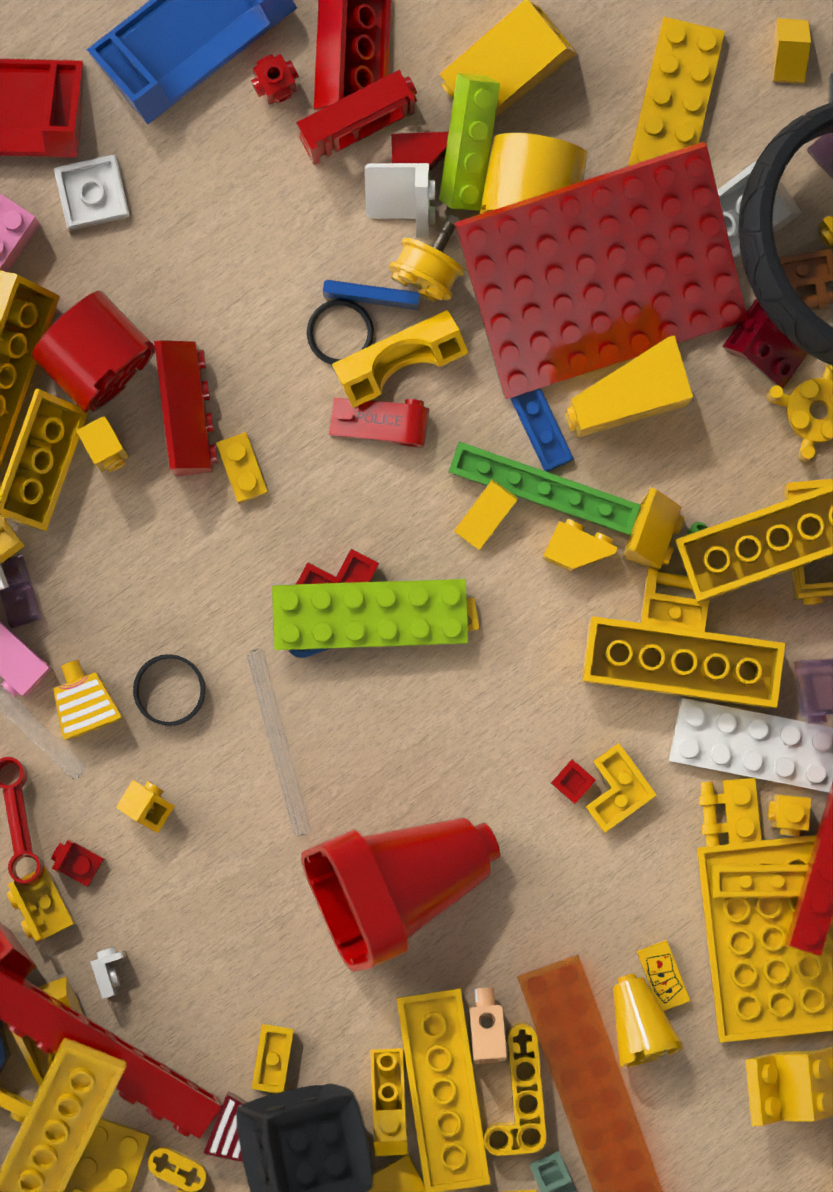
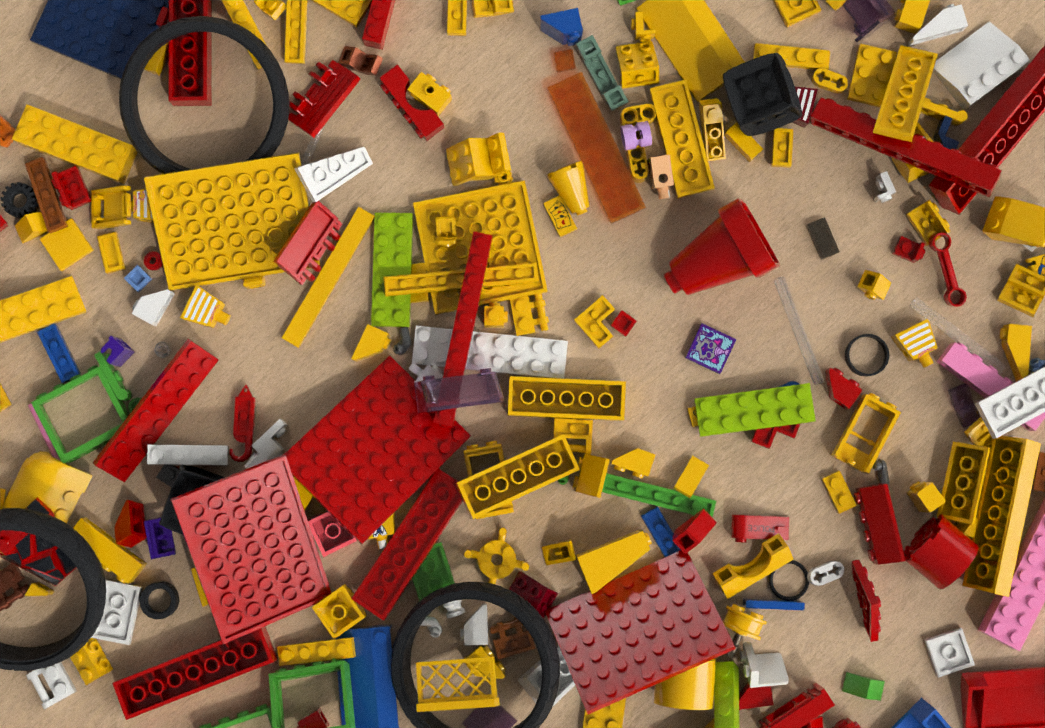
camera: 170 degrees right, 0 degrees up
(41, 382) = (967, 529): none -> yellow slope
(165, 493) = (881, 466): none -> dark grey arm
(209, 523) = (854, 456): none -> yellow door
(218, 285) = (867, 600): none -> red plate
(220, 635) = (840, 389): none -> red slope
(220, 895) = (822, 238): none -> clear smoke tile
(238, 150) = (863, 686): none -> bright green slope
(277, 330) = (827, 577): none -> white beam
(333, 1069) = (744, 144): none -> yellow slope
(430, 725) = (710, 348): none -> tile
(493, 424) = (693, 531): none -> red slope
(538, 1098) = (629, 137): none -> lavender wheel
(714, 411) = (559, 552): none -> yellow slope
(747, 1046) = (508, 178): none -> yellow plate

